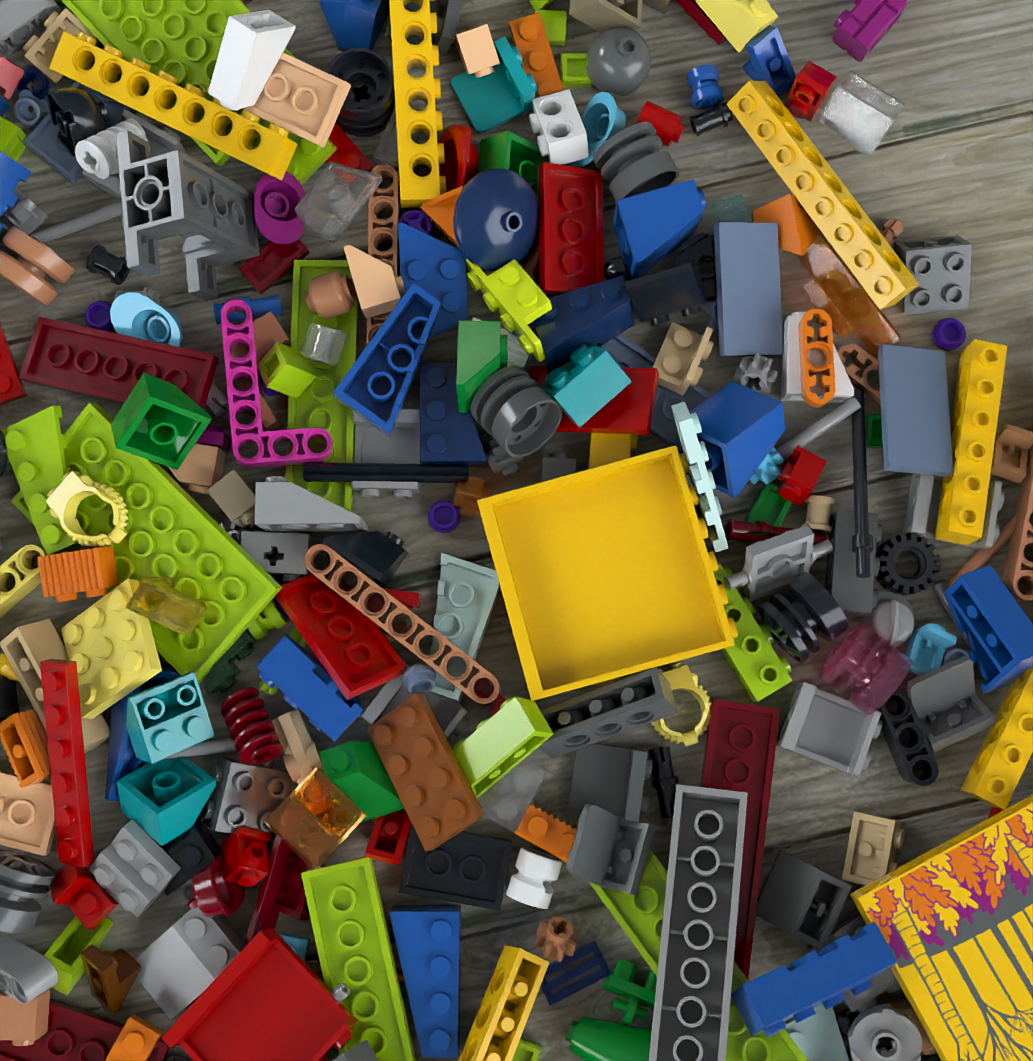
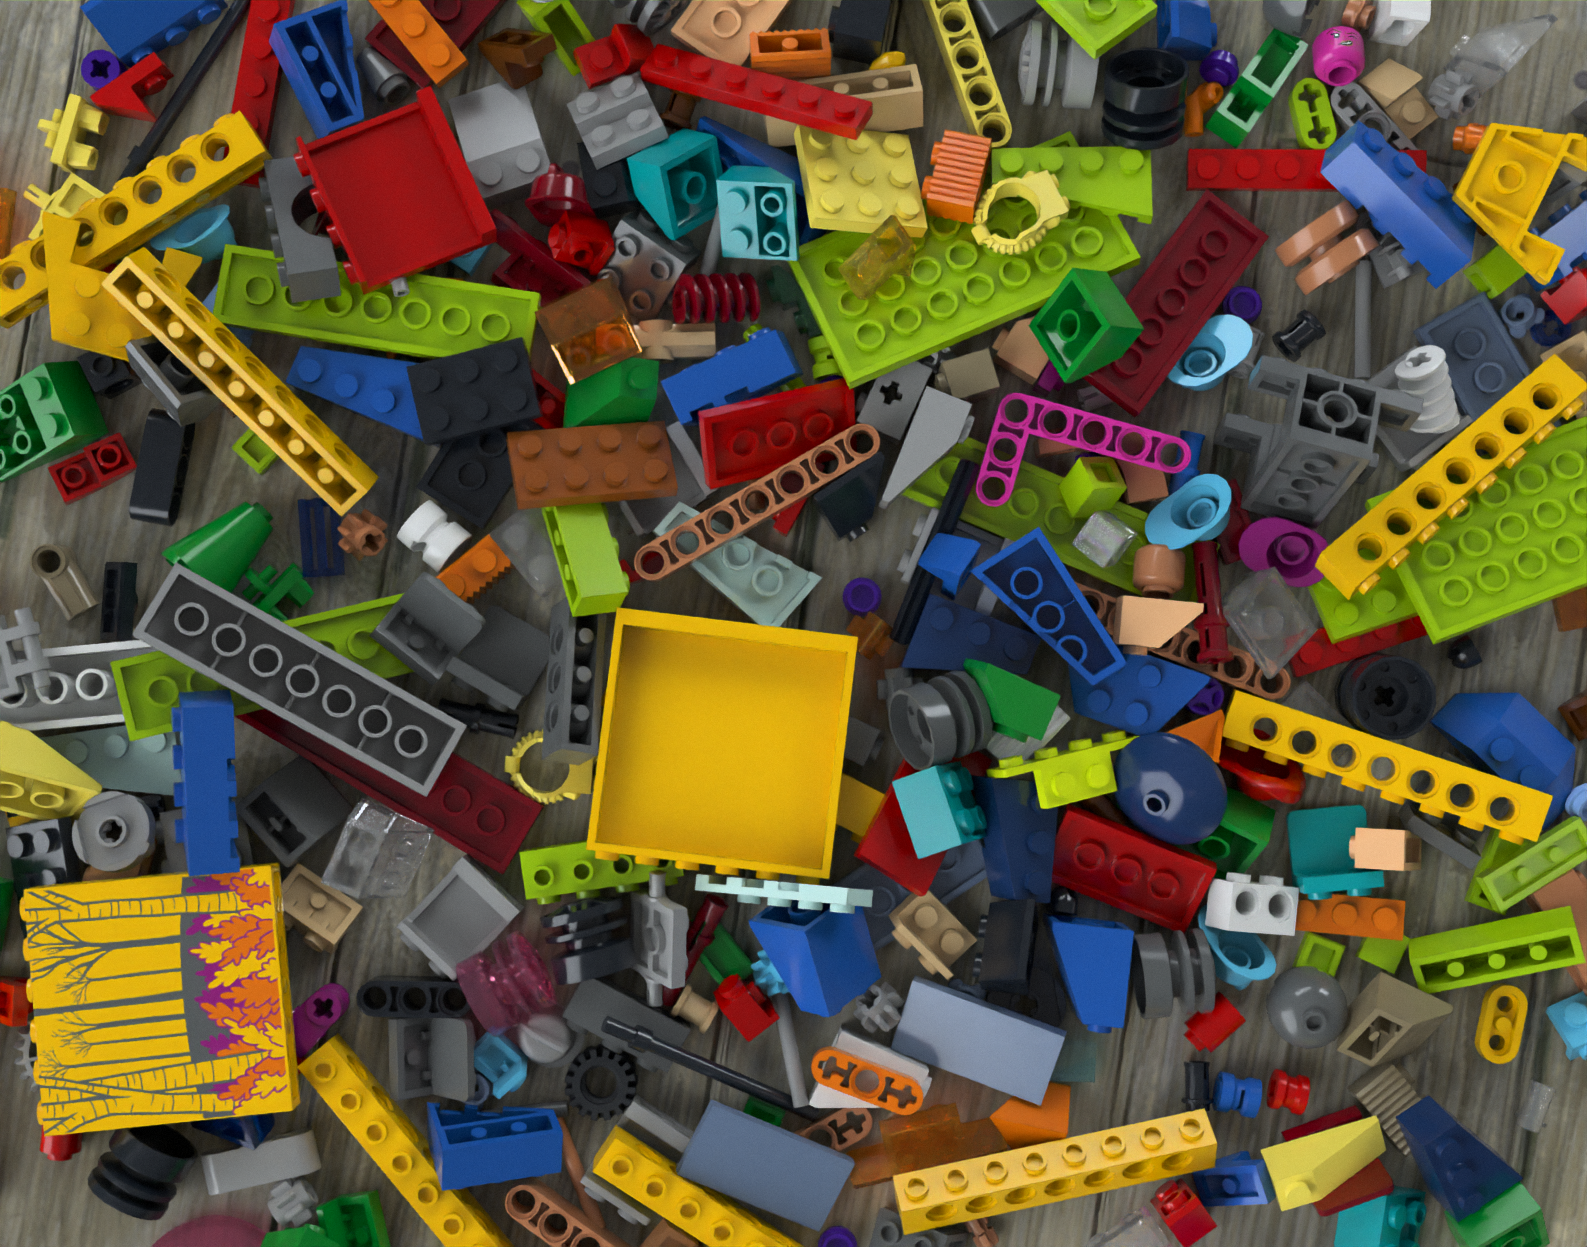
camera: 110 degrees right, 5 degrees up
(76, 115) = (1482, 364): black cylinder -> none
(107, 821) = (679, 110): none -> reddish brown bush
(248, 57) = (1462, 582): white slope -> none
(277, 287) = (1192, 513): none -> medium azure piece
(301, 99) = (1418, 602): light nougat plate -> none
(305, 50) = (1464, 653): none -> black hinge
(356, 235) = (1211, 622): none -> dark red pin
(387, 455) = (950, 560): none -> blue slope
(402, 892) = (474, 391): none -> black plate
(419, 678) = (692, 498): sand blue plate -> none
(686, 51) = (1288, 1092): none -> red wheel
(807, 816) = (377, 853): none -> clear slope
(960, 812) = (313, 1020): none -> magenta piece

